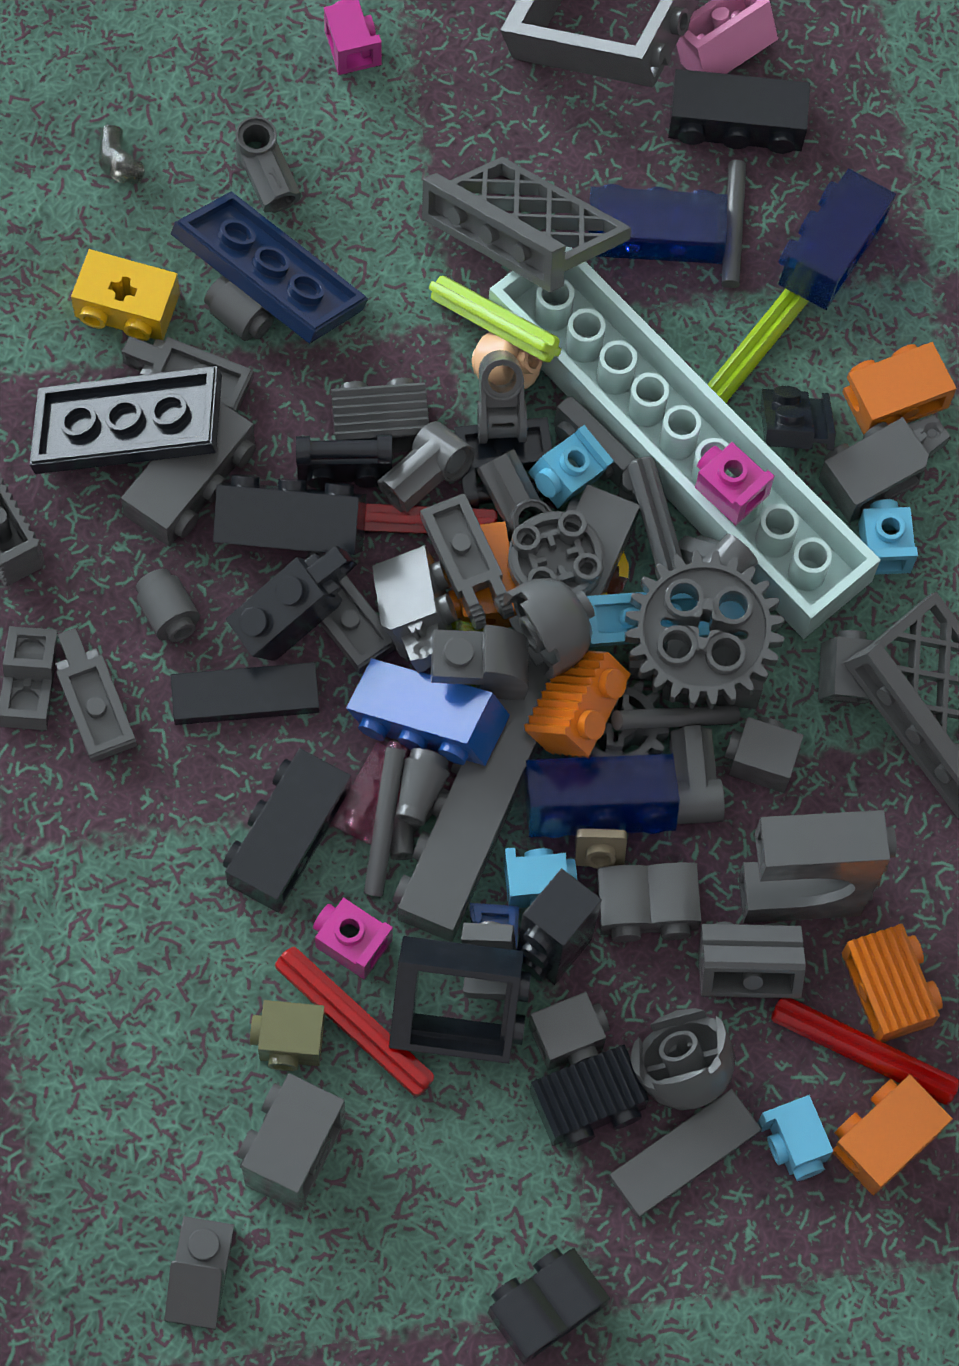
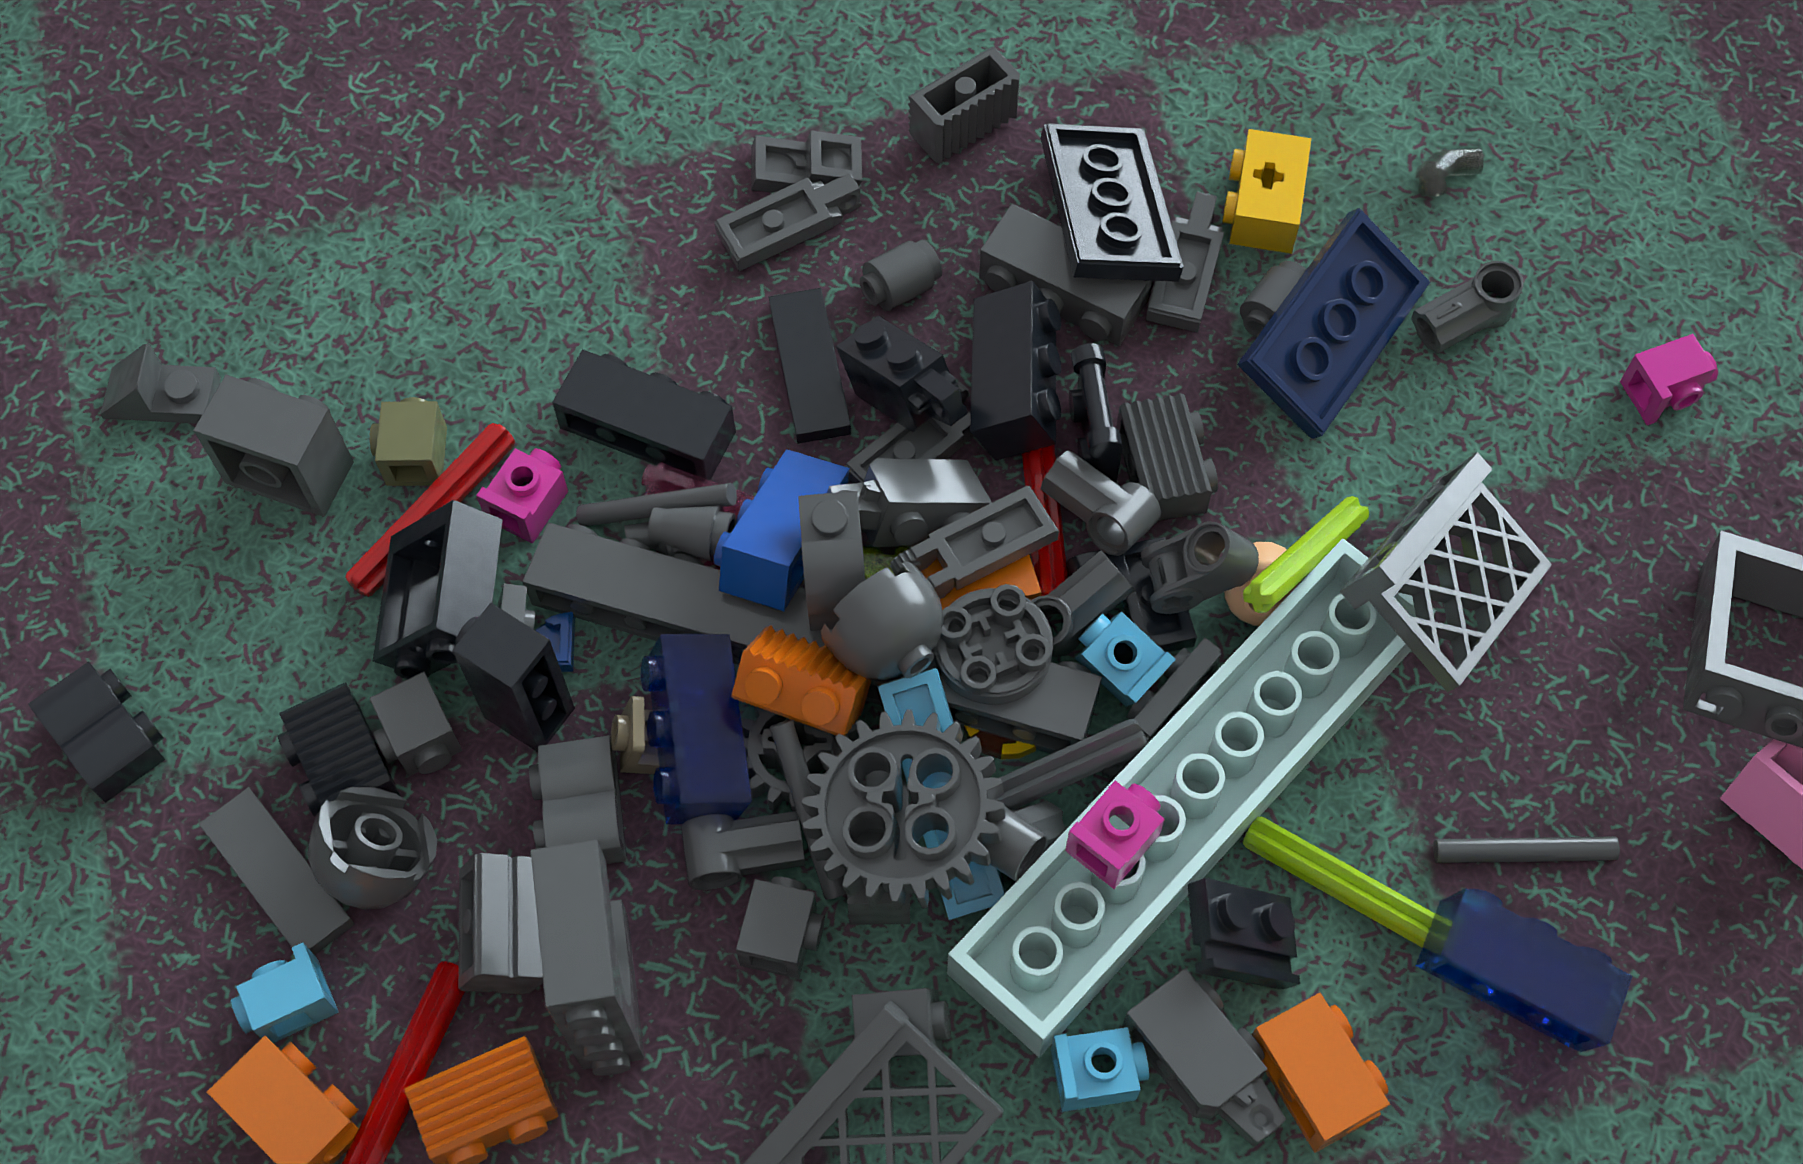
camera: 90 degrees right, 5 degrees down
(532, 873) = (601, 674): medium azure brick -> none
(666, 223) = (1499, 750): clear blue brick -> none
(739, 111) = (1690, 838): black brick -> none

